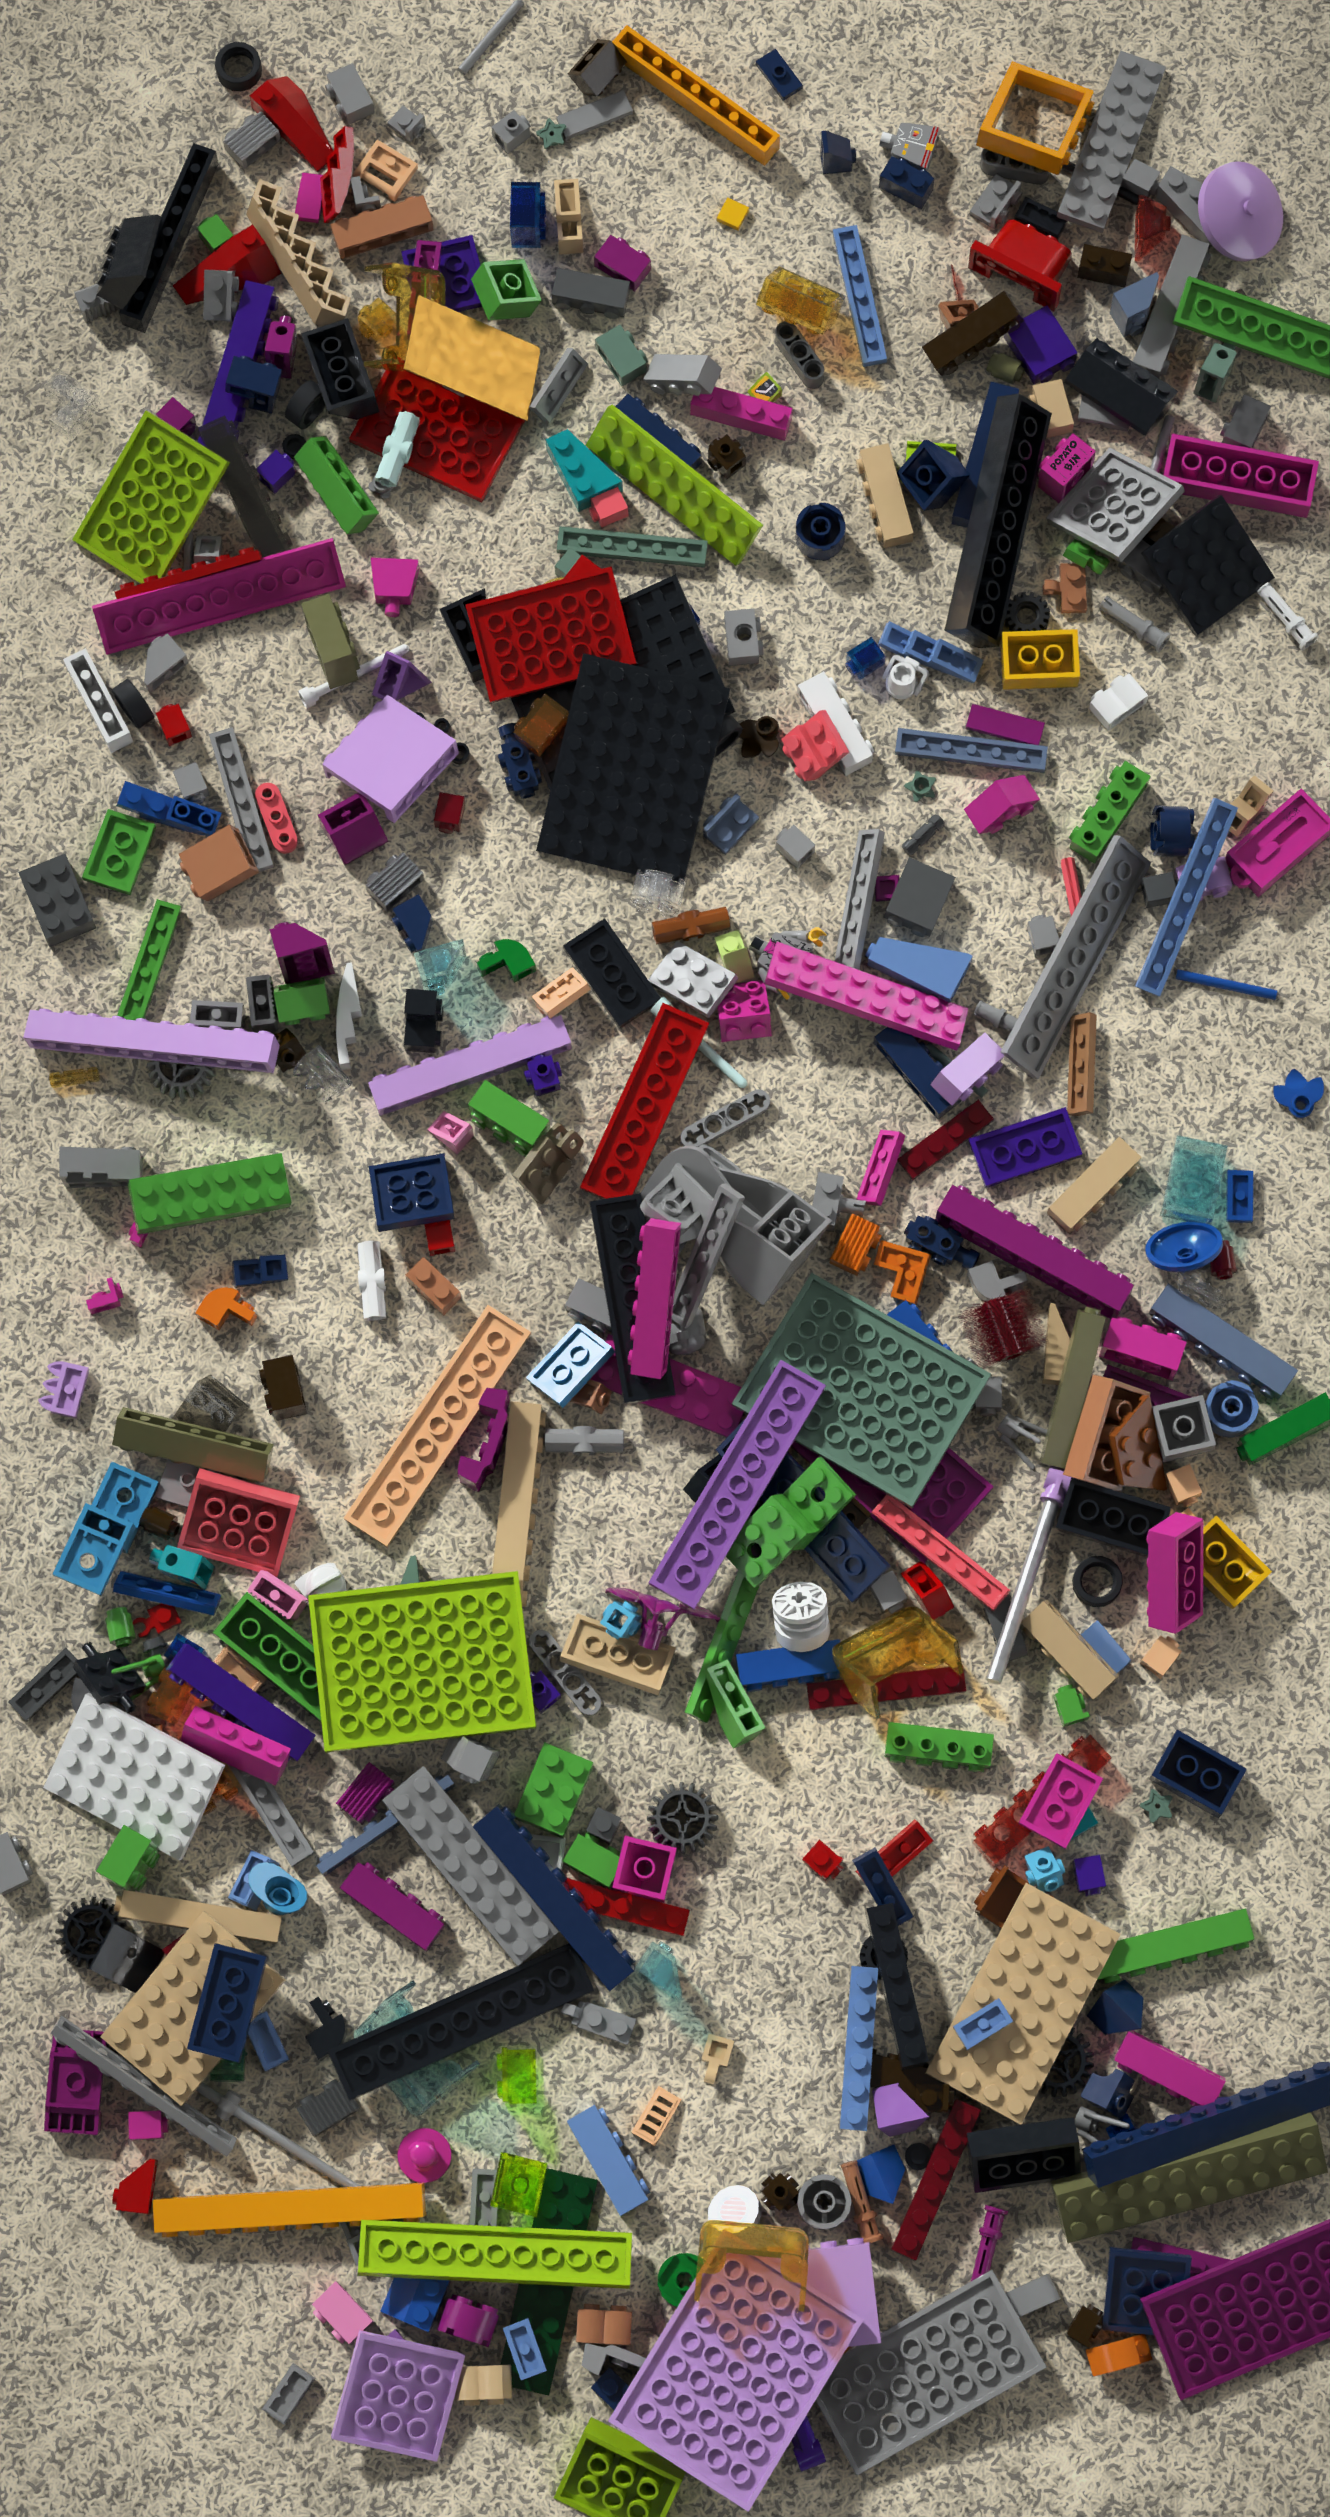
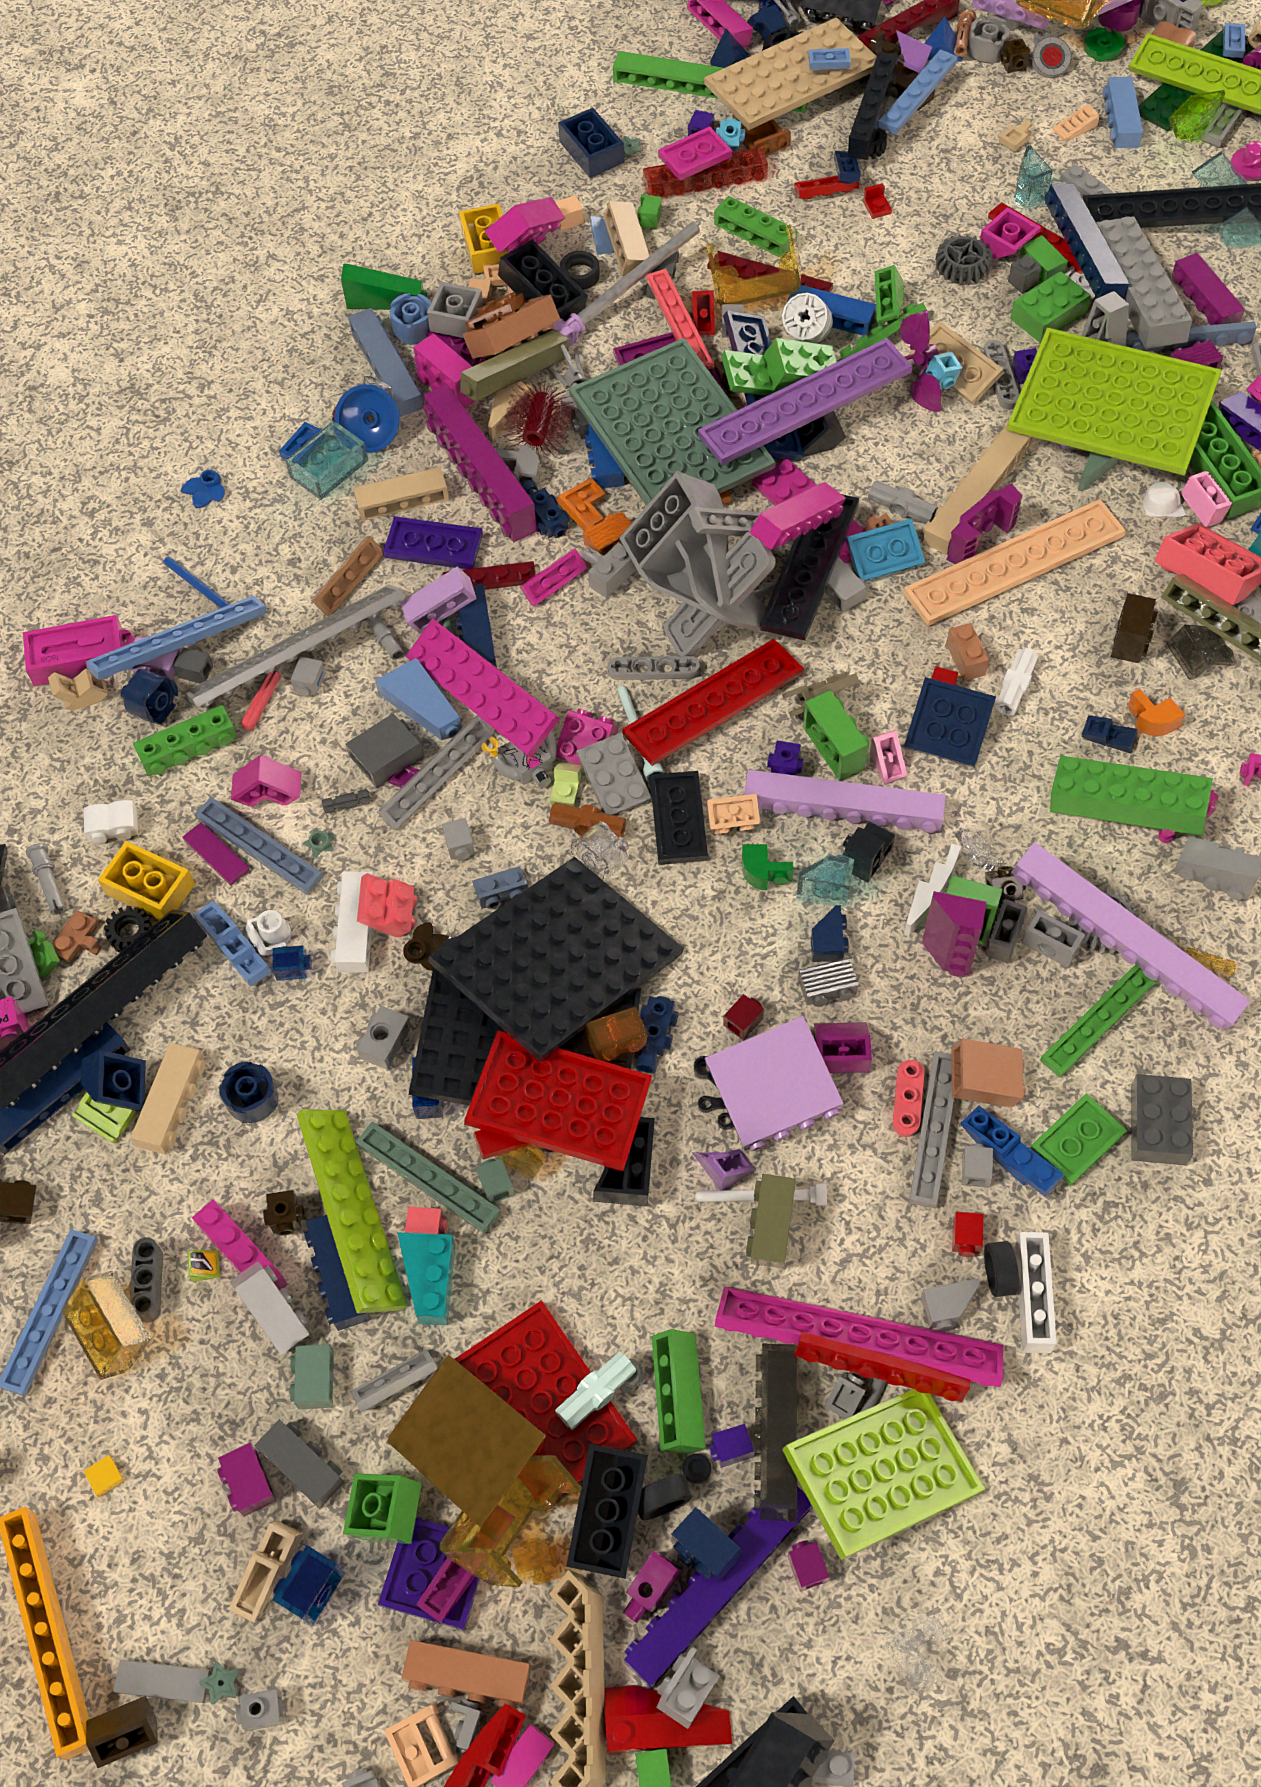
camera: 150 degrees left, 15 degrees down
(394, 582) = (675, 1261): dark pink torso -> none
(518, 2076) = (1163, 174): clear neon green bracket -> none

